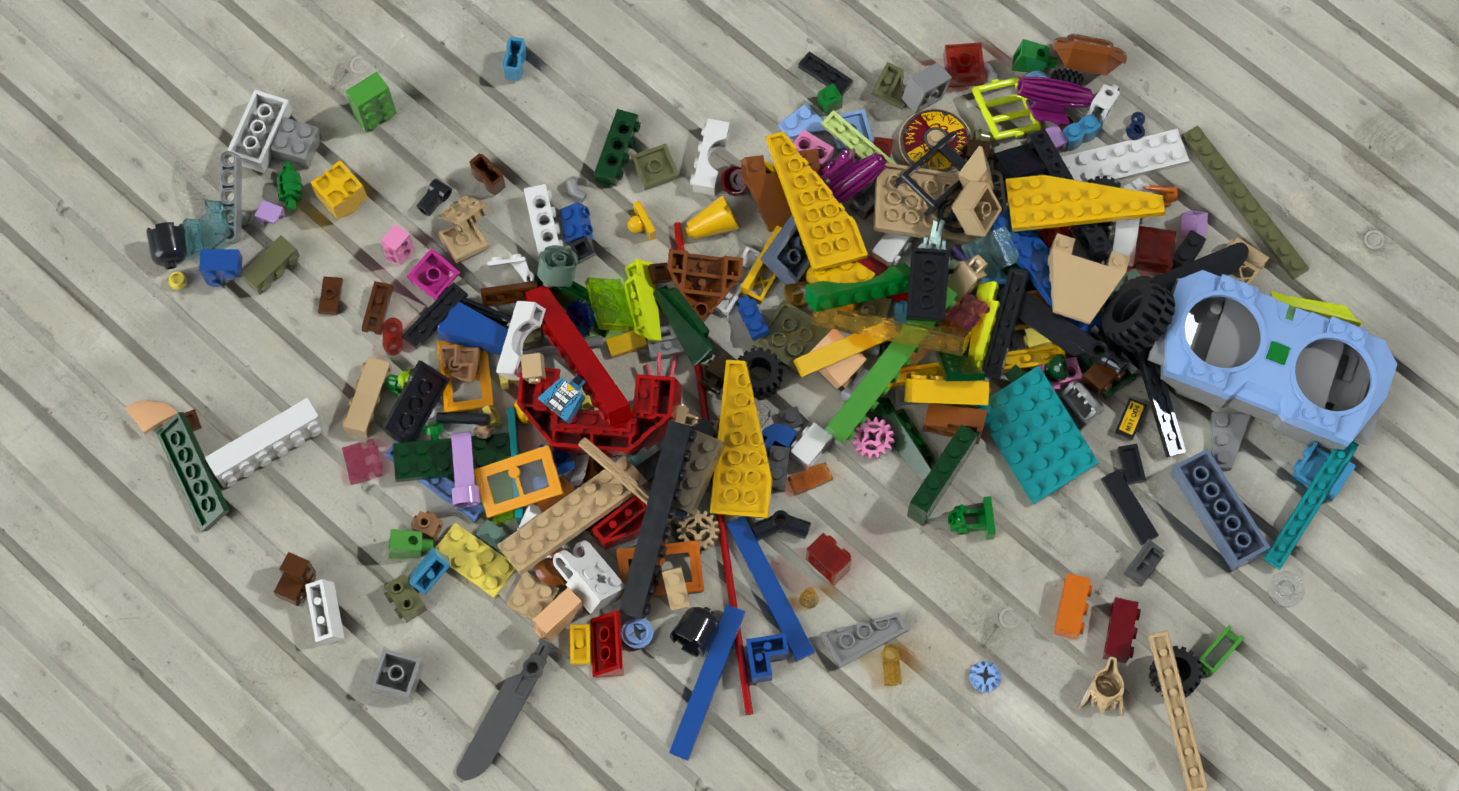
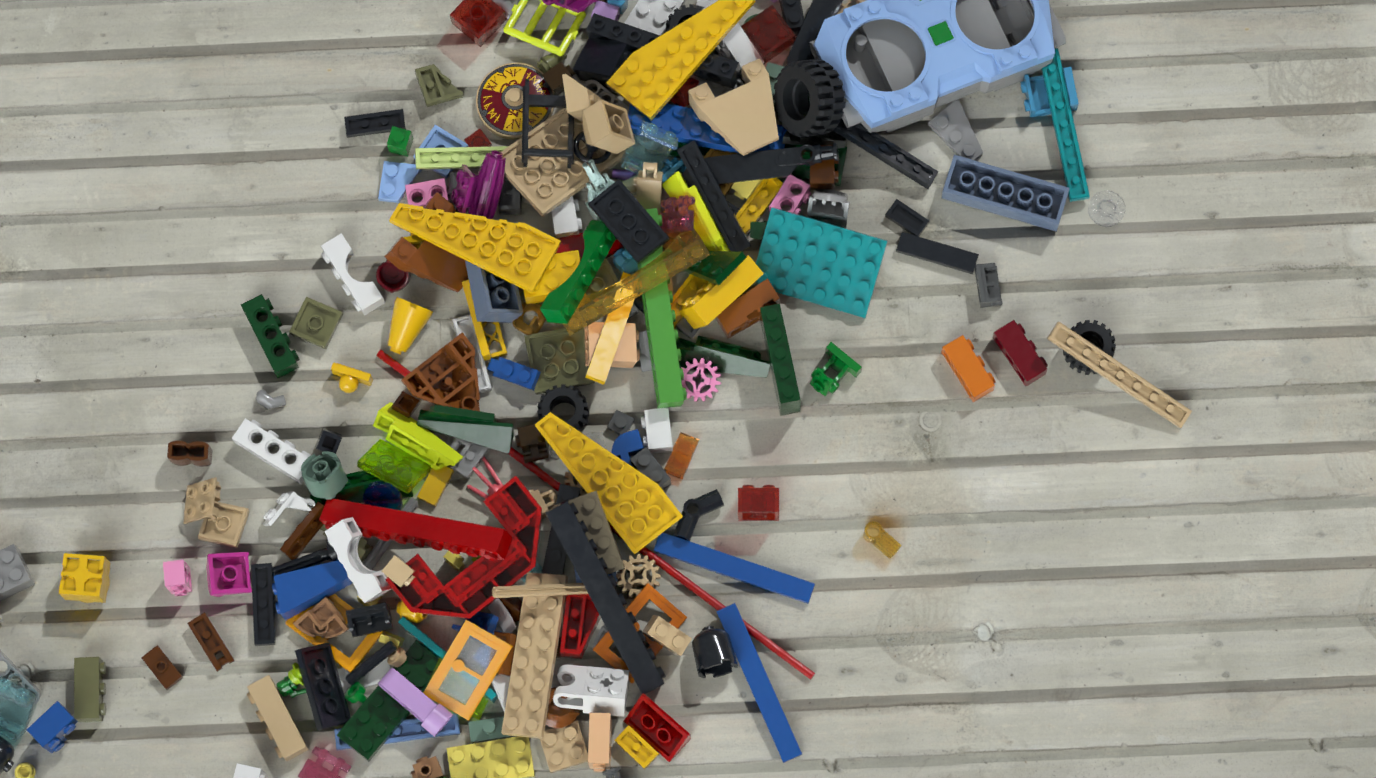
camera: 40 degrees left, 5 degrees up
(269, 213) = (44, 649): lavender panel -> none
(289, 186) = (38, 613): green piece -> none
(371, 102) = (37, 483): bright green brick -> none
(392, 337) = (247, 652): clear red plate -> none
(436, 193) = (163, 508): black piece -> none
(490, 388) = (369, 619): none -> black hinge
(514, 58) = (114, 339): dark azure brick -> none
(564, 398) = (446, 571): torso -> none
(575, 222) = (299, 427): blue bracket -> none
(641, 625) = (679, 694): light blue gear -> none
(762, 651) = (778, 624): blue brick -> none
(809, 602) = (771, 552): clear yellow cone -> none
(855, 641) = (837, 544): light grey wing -> none
(926, 87) = (468, 63): light grey brick -> none
(978, 682) = (955, 491): light blue gear -> none
(1057, 367) = (785, 195): dark green brick -> none
(1106, 688) = (1051, 406): tan piece -> none
(1131, 418) = (873, 183): tile -> none
(1219, 651) = (1104, 301): window -> none

